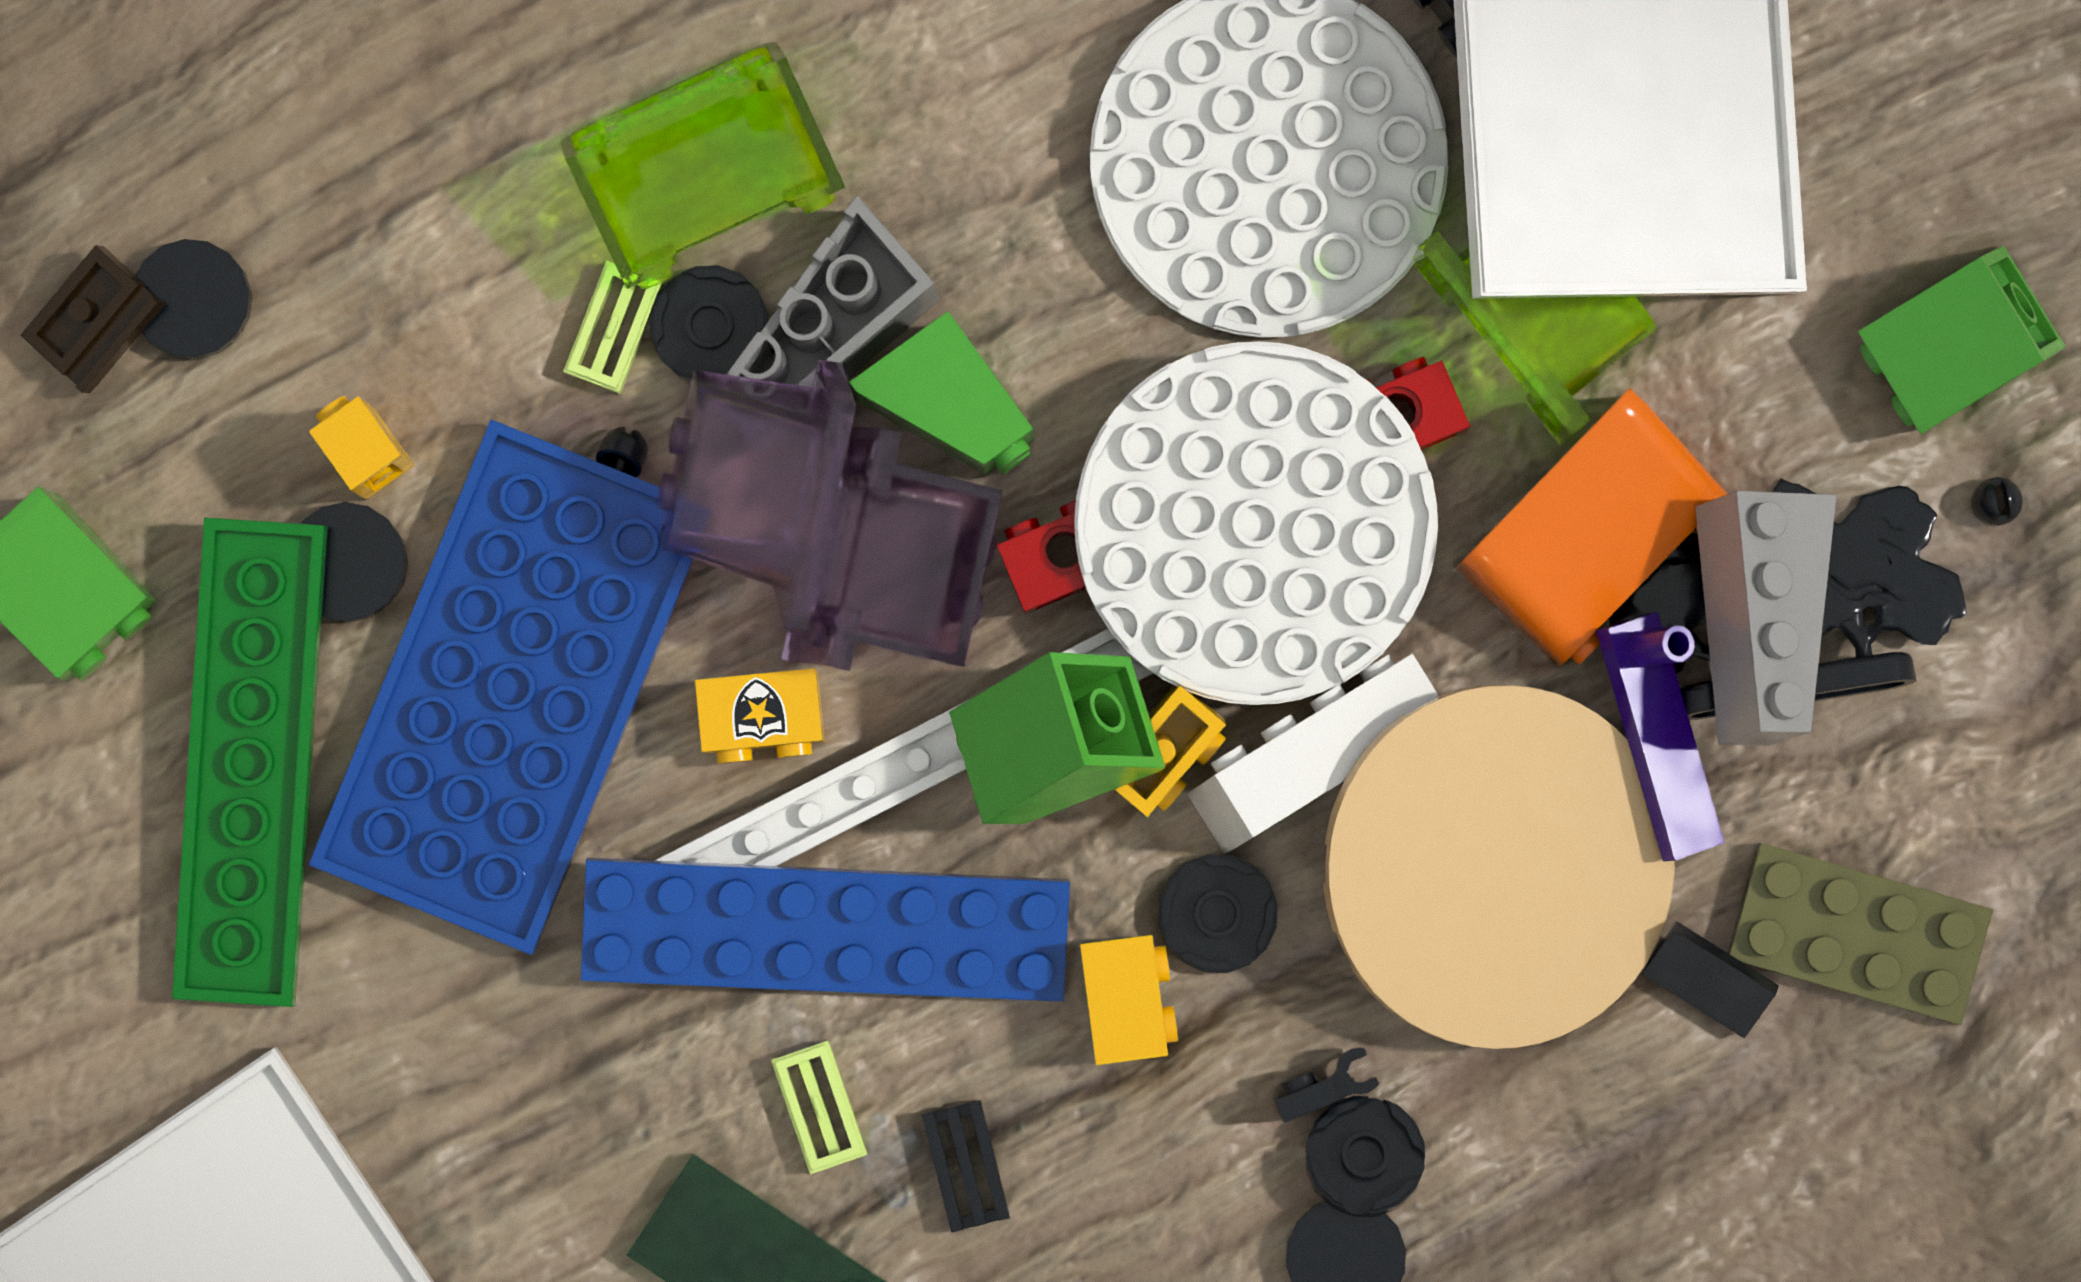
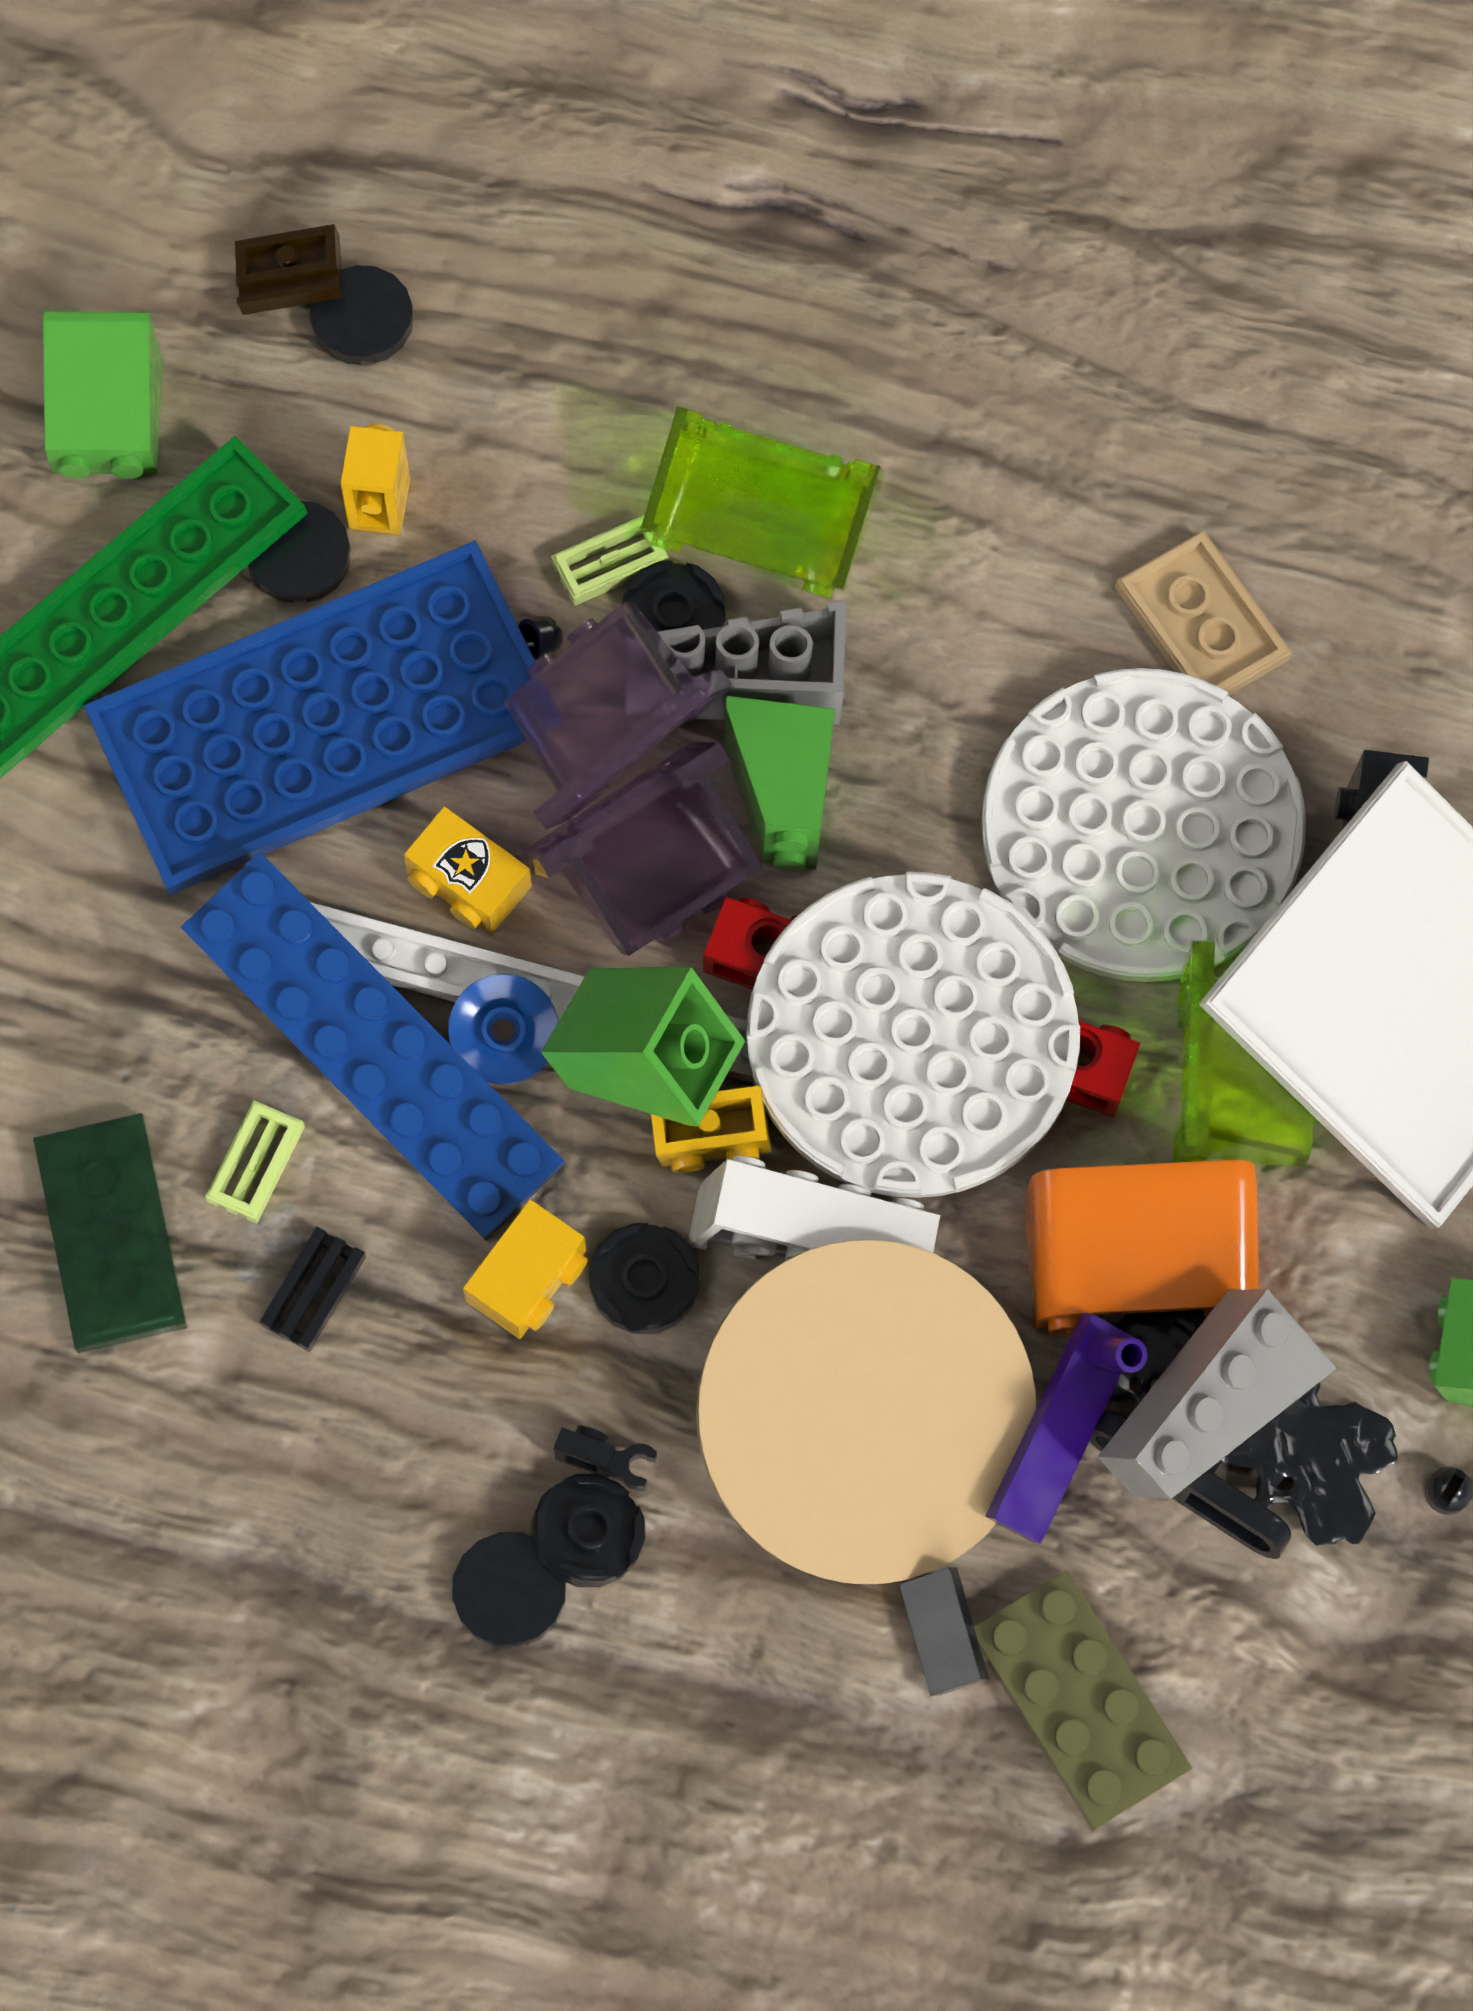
camera: 35 degrees right, 15 degrees down
(949, 827) = (507, 999): none -> blue dish

